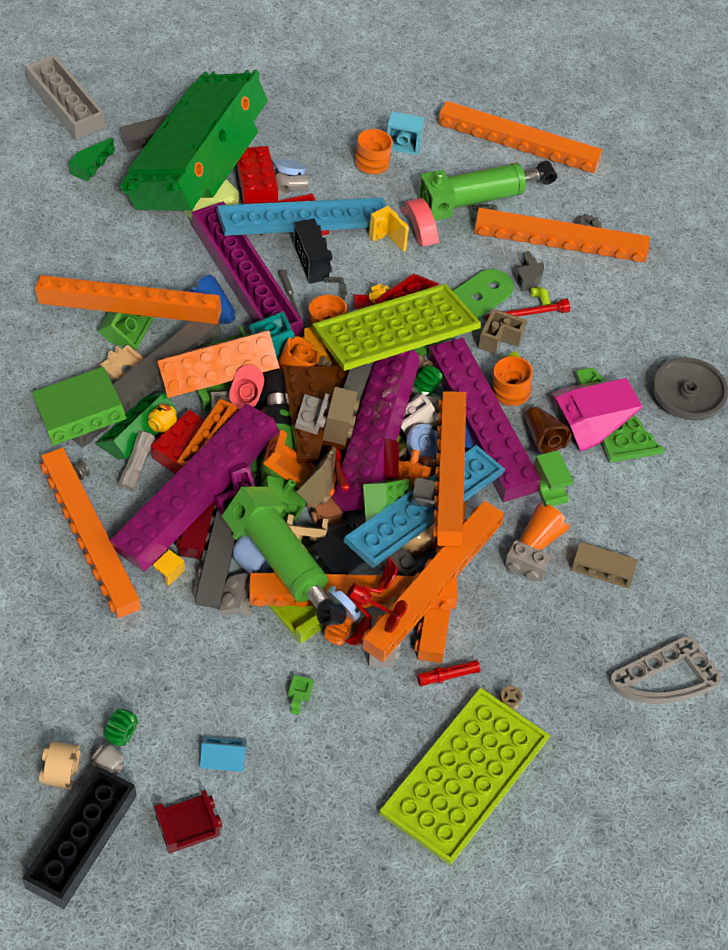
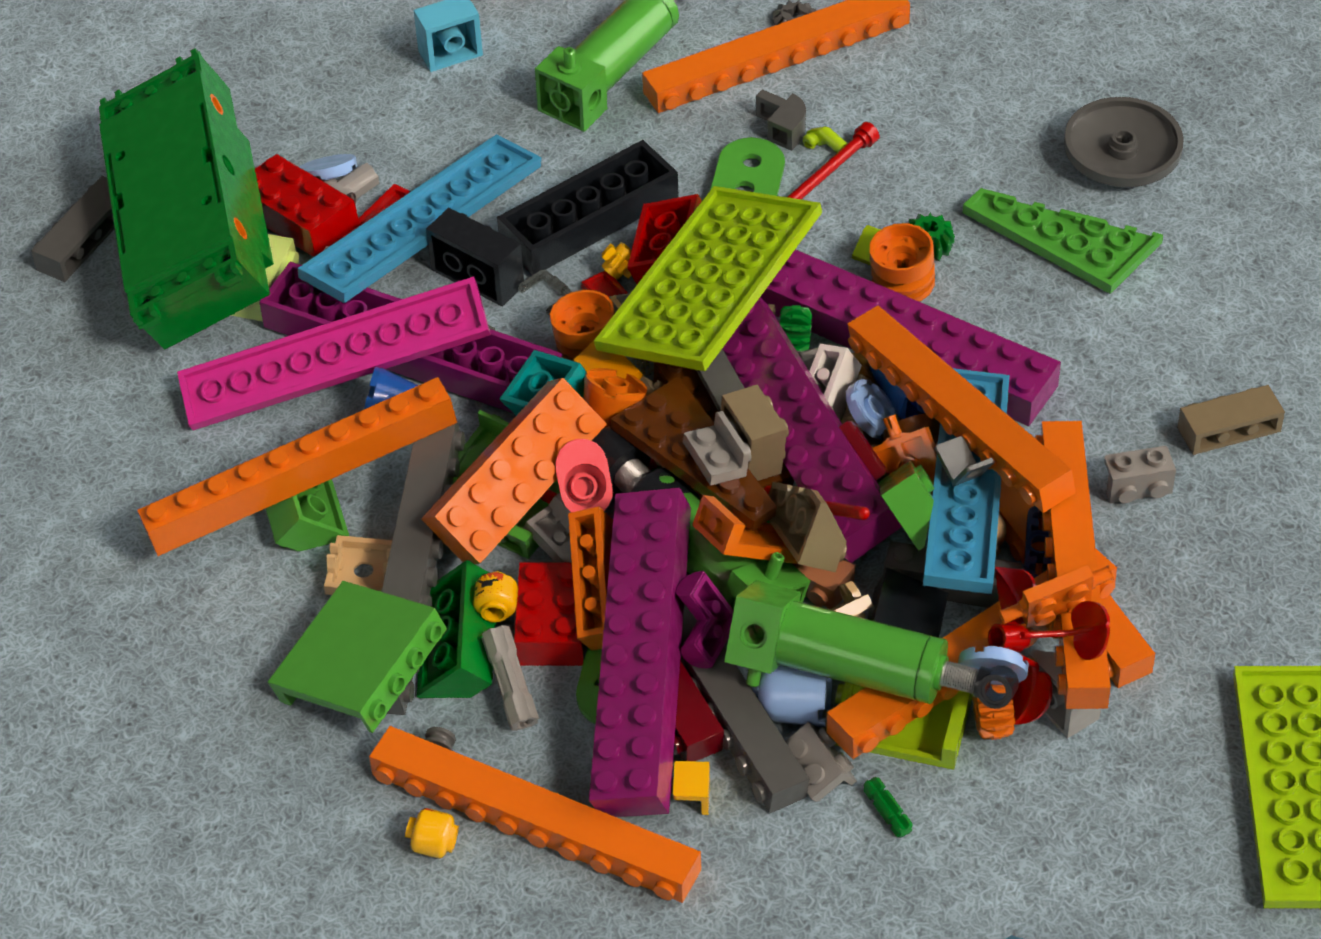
camera: 30 degrees left, 5 degrees down
(37, 509) = (432, 833): none -> yellow head
(87, 161) = (23, 322): green slope -> none
(201, 257) = (333, 353): none -> dark pink plate
(250, 639) = (888, 807): none -> green axle
(300, 690) = (1019, 825): bright green plate -> none
(373, 151) = (428, 80): orange wheel -> none
(388, 223) = (550, 162): yellow bracket -> none
(389, 258) = (588, 206): none -> black brick
(395, 589) = (1056, 596): none -> orange plate
(422, 221) = (581, 127): coral arch -> none
(440, 675) = (1169, 685): red pin -> none
(485, 206) = (636, 74): clear smoke piece -> none
(502, 328) = (839, 206): dark tan brick -> none
(511, 693) = (1284, 647): dark tan wheel -> none
(544, 376) = (940, 232): none -> green gear
(544, 527) = (1118, 416): orange cone -> none
(547, 431) = (1002, 299): reddish brown cone -> none
(553, 477) = (1077, 348): bright green piece -> none
(596, 409) = (1037, 234): dark pink wedge -> none

